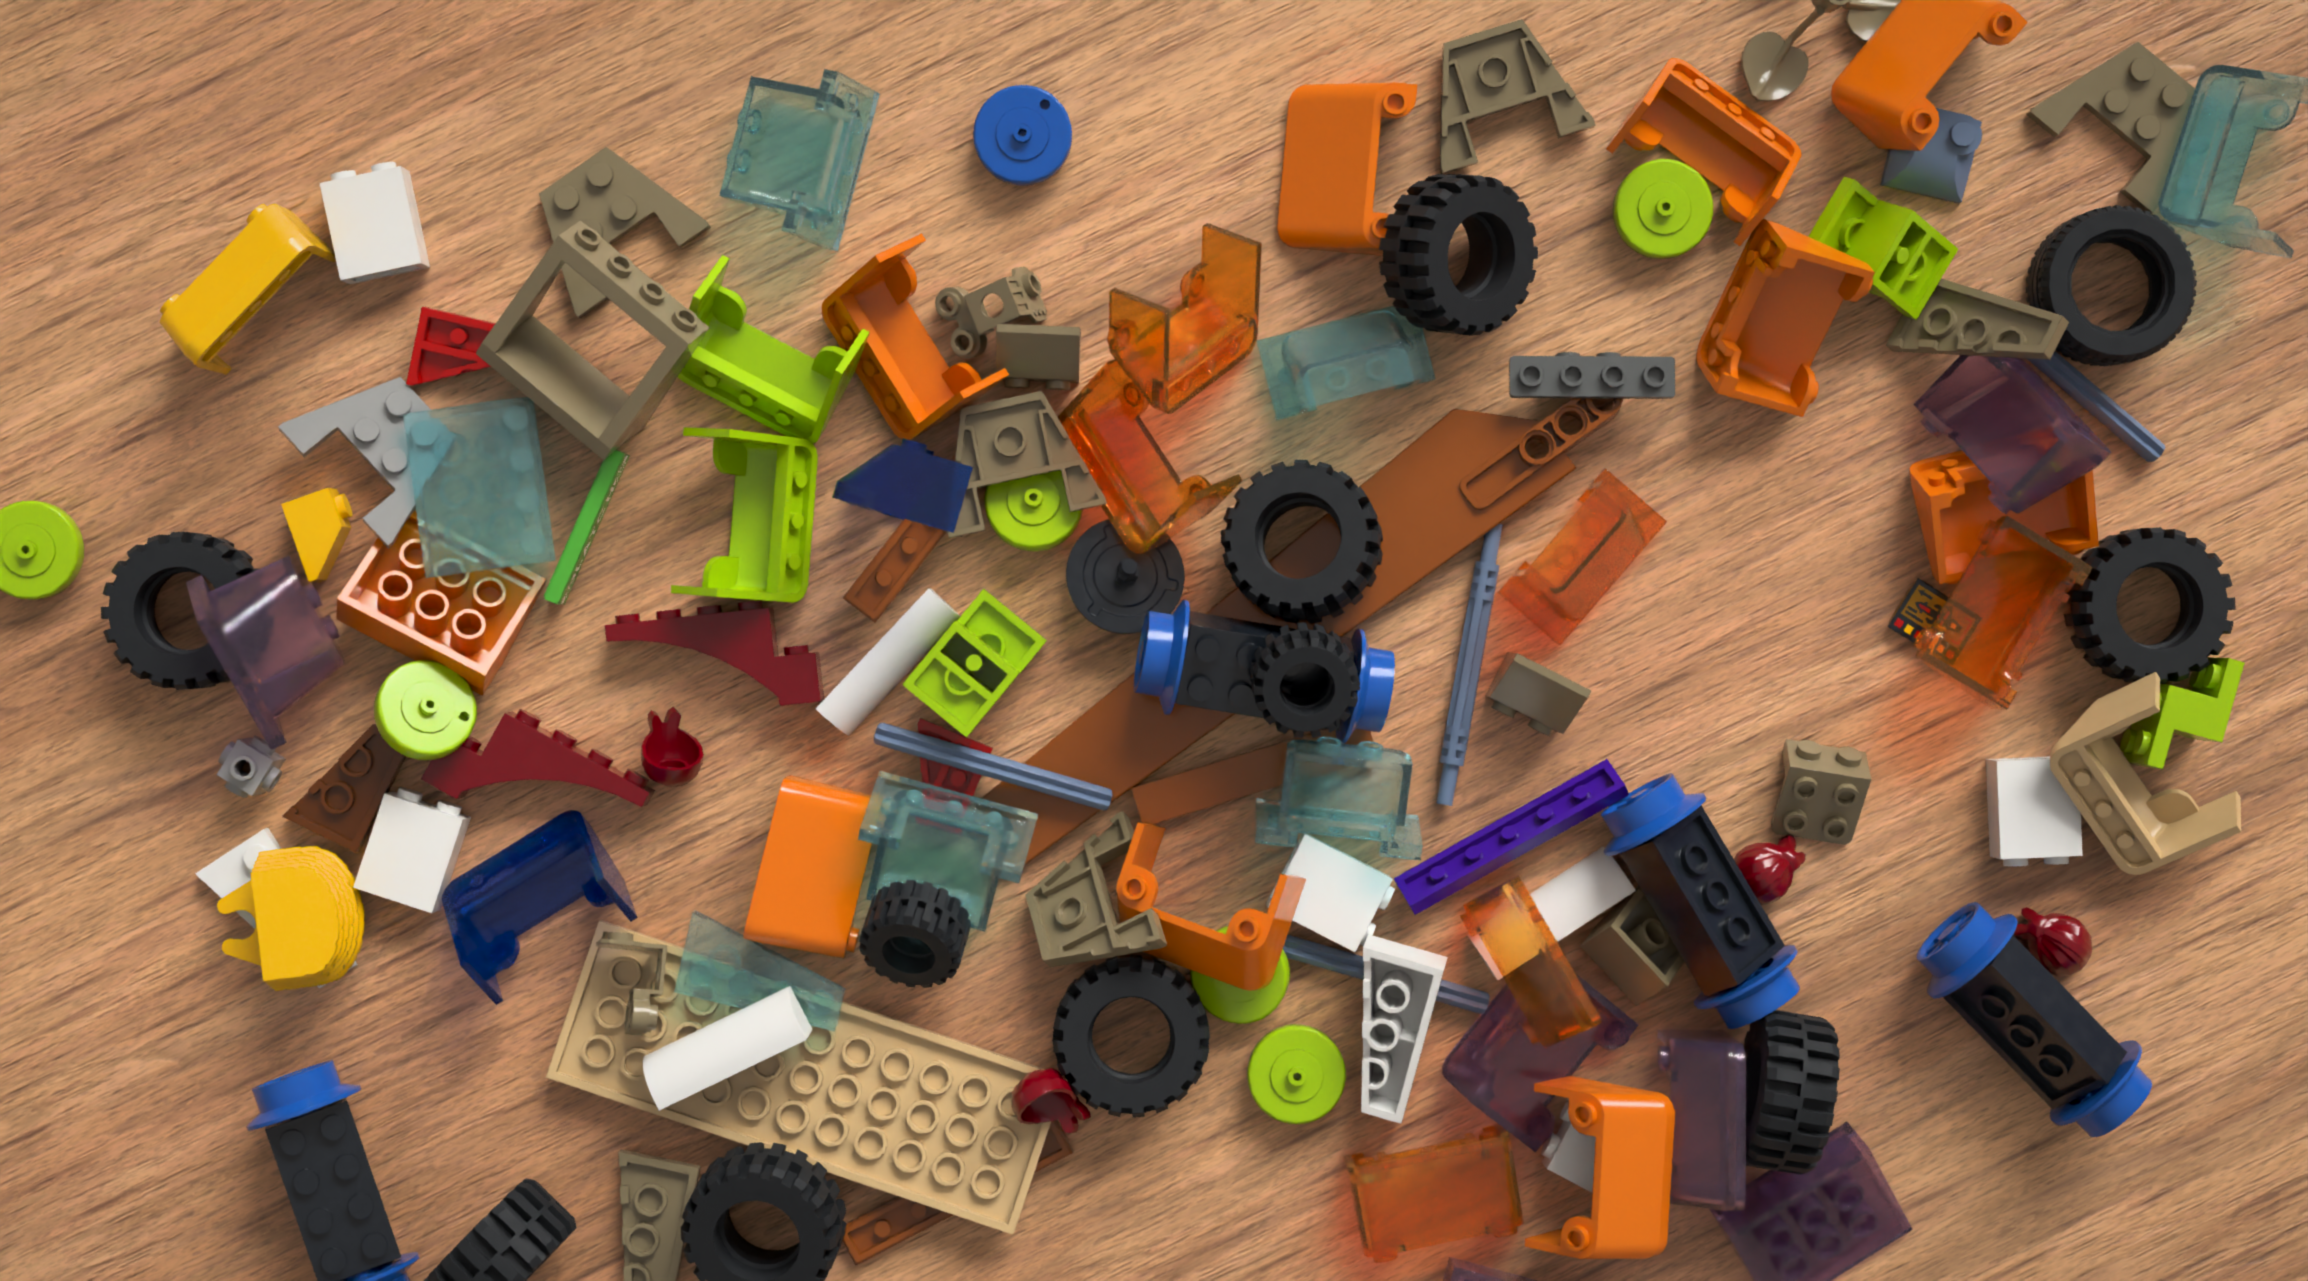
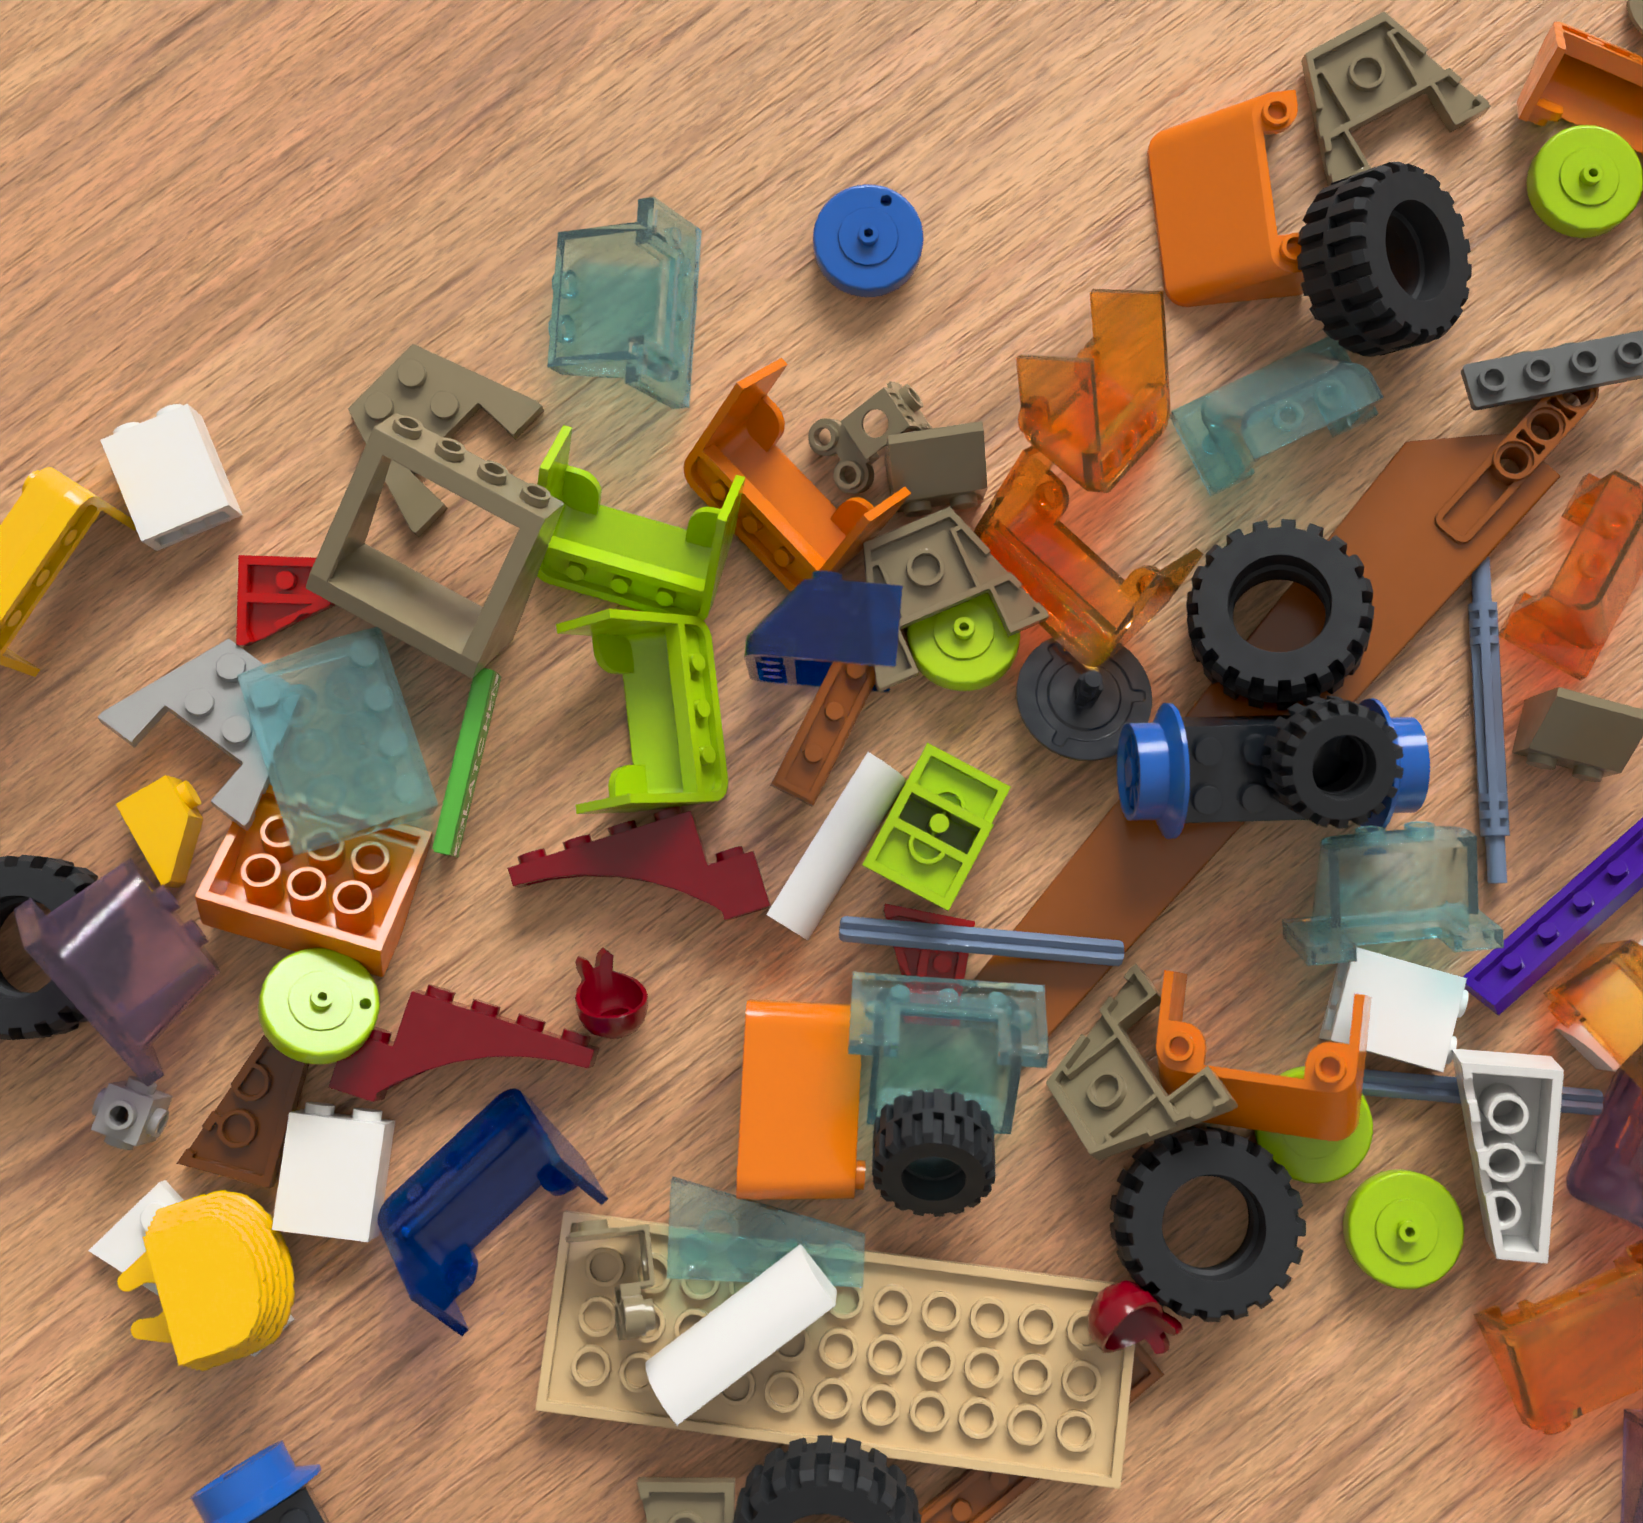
camera: 10 degrees left, 5 degrees down
(1220, 780) = (1239, 906): dark orange tile -> none

